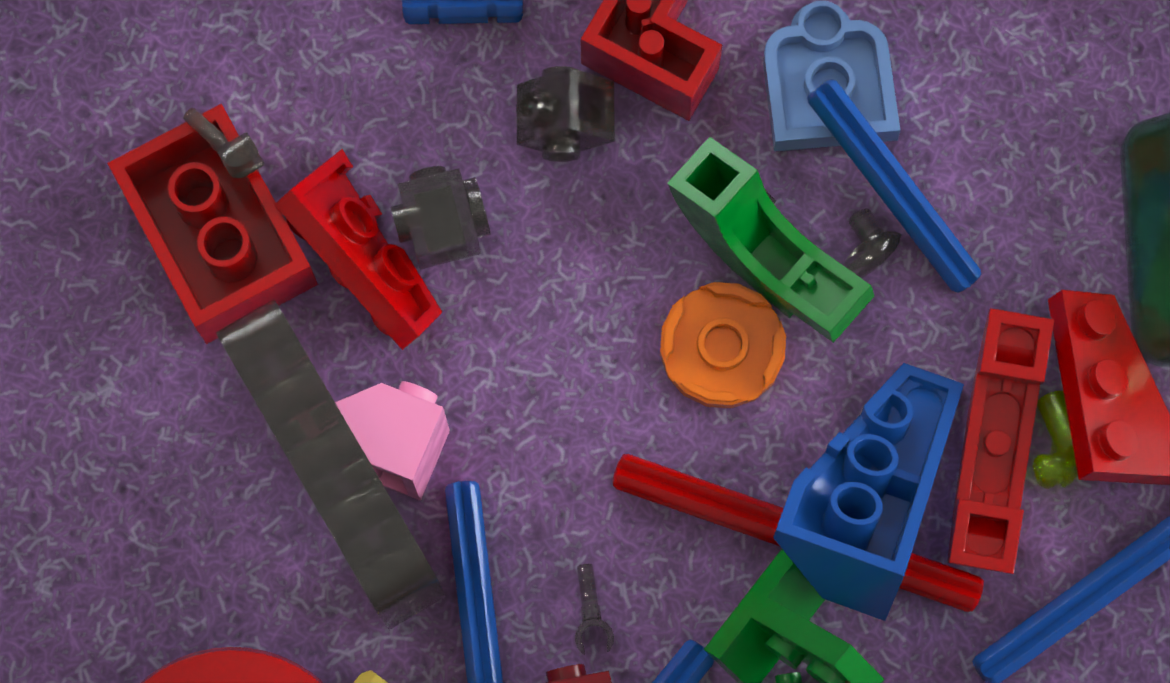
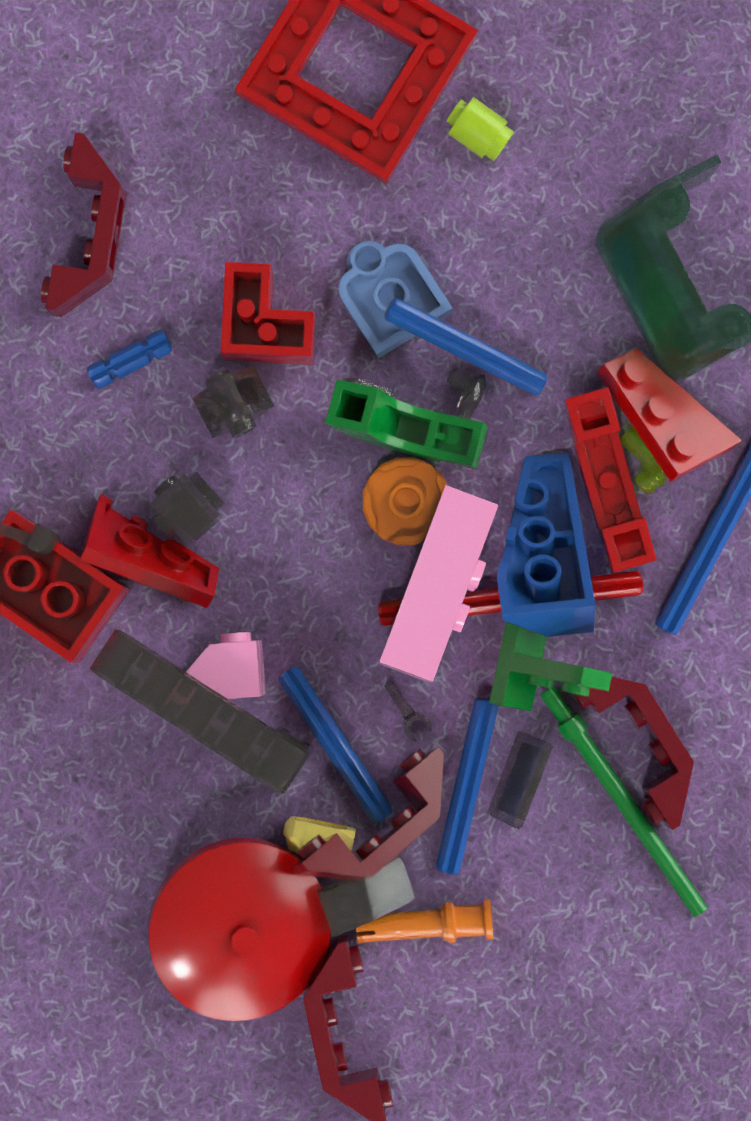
camera: 30 degrees left, 10 degrees up
(710, 456) = (439, 584): none -> bright pink brick

